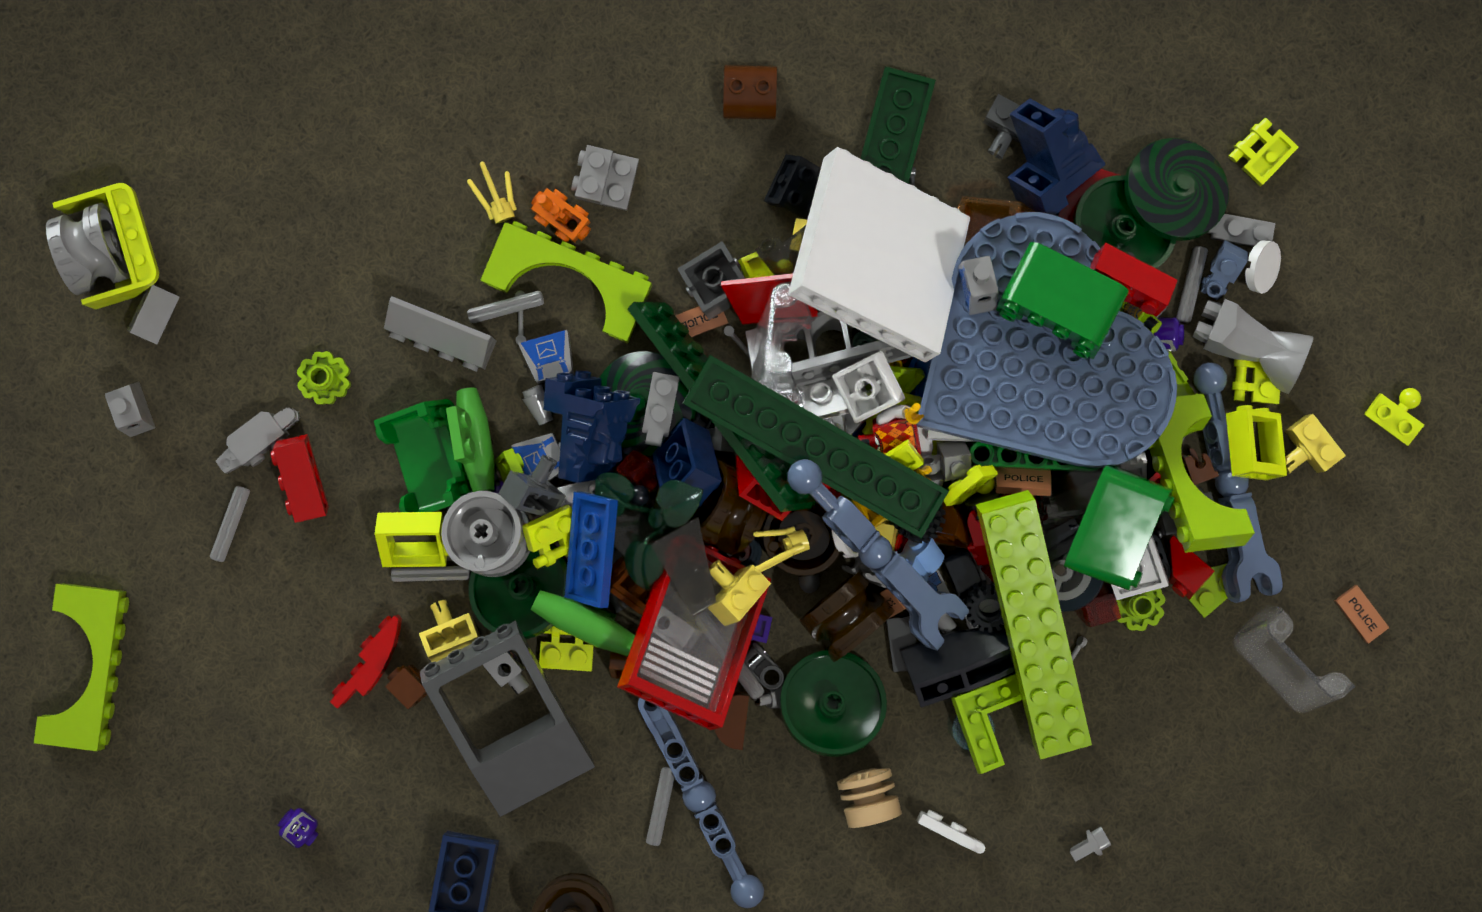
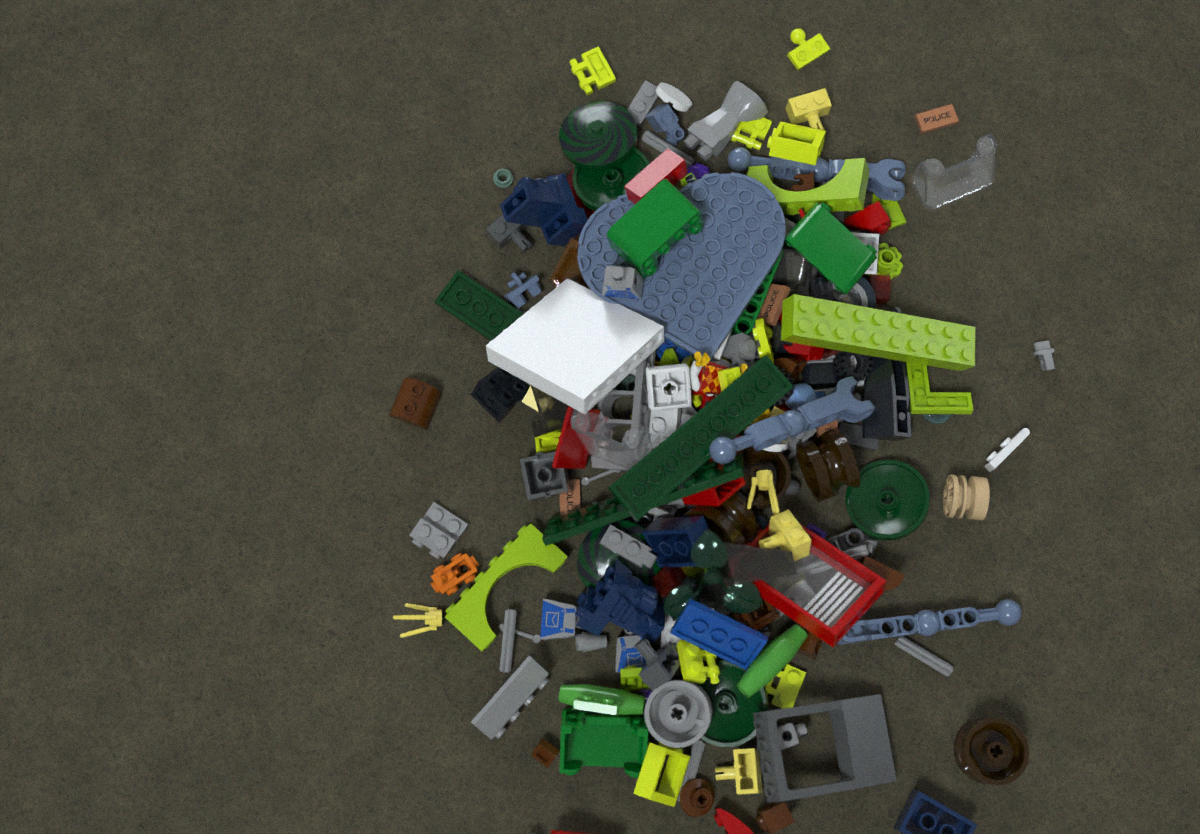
camera: 75 degrees left, 10 degrees down
(323, 378) = (511, 802): lime plant -> none
(392, 396) = (545, 752): none -> reddish brown plate
(406, 581) = (690, 793): none -> reddish brown piece
(950, 175) = (530, 284): none -> sand blue hips
(1077, 83) = (503, 172): none -> sand green plate

